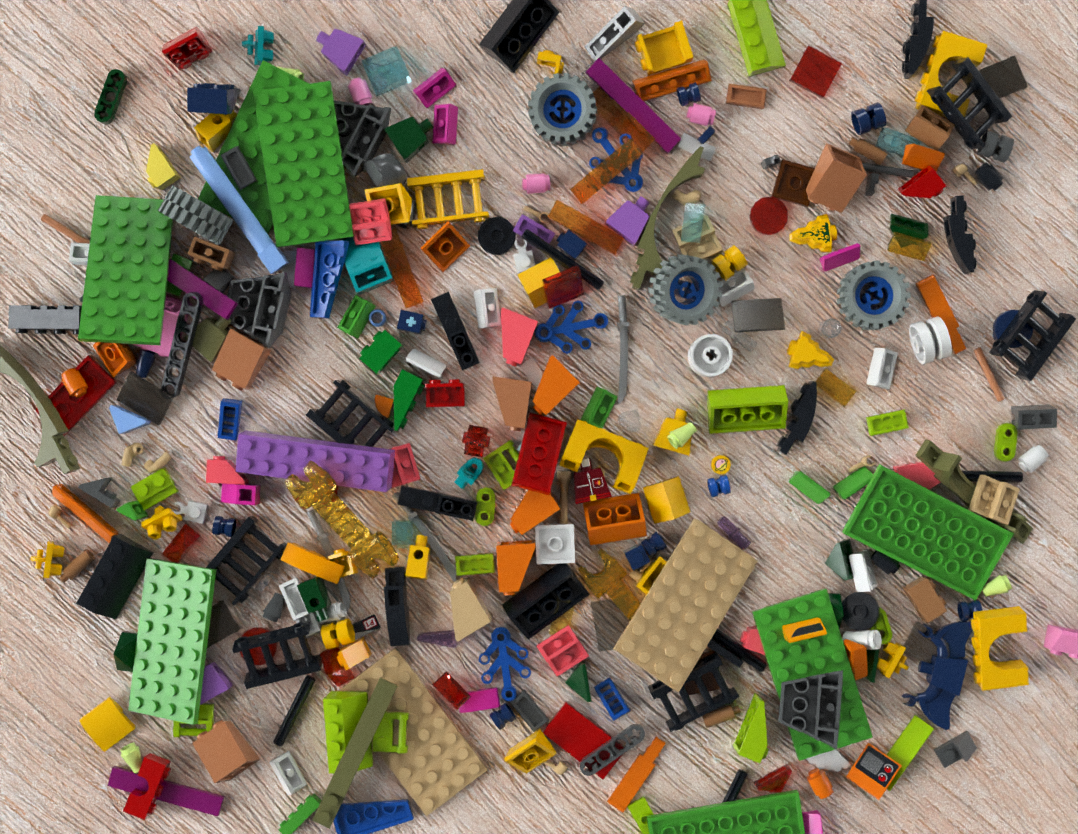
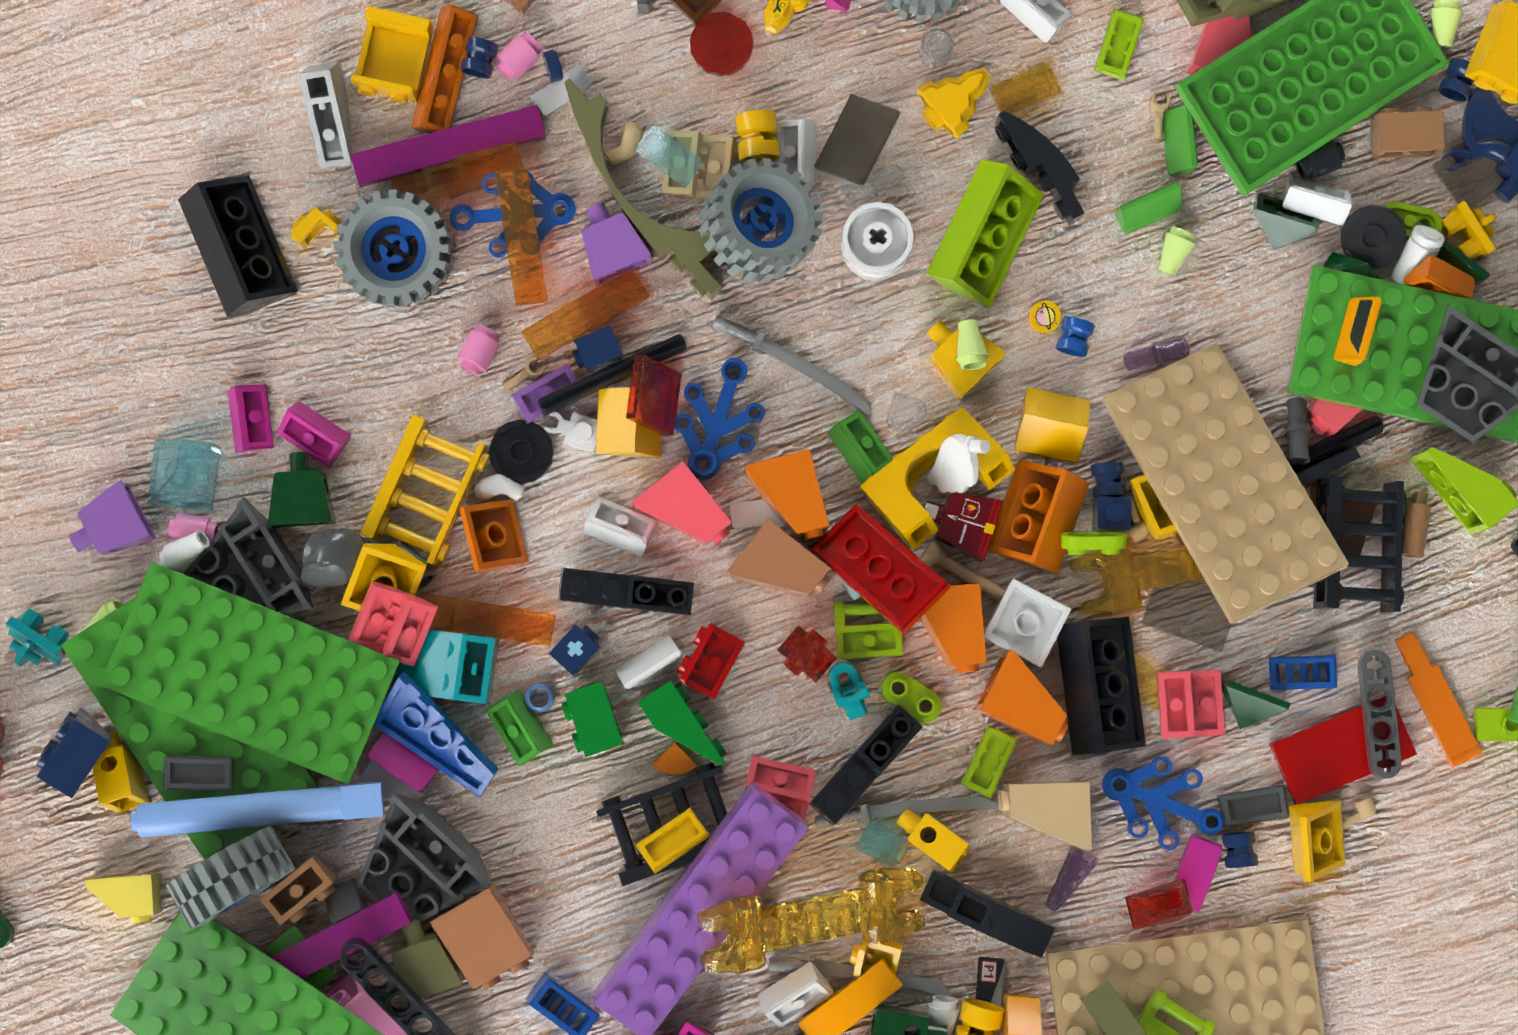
camera: 65 degrees left, 5 degrees down
(301, 532) = (794, 994): none -> white slope
(342, 426) = (672, 840): none -> yellow tile
(344, 93) = (184, 551): none -> white cone
(472, 233) = (496, 485): none -> white arm
(613, 549) = (1081, 541): none -> lime plate
(616, 462) = (957, 463): none -> white animal
(735, 628) = (1298, 431): none -> dark grey pin
(795, 512) = (1176, 248): none -> yellowish green cone

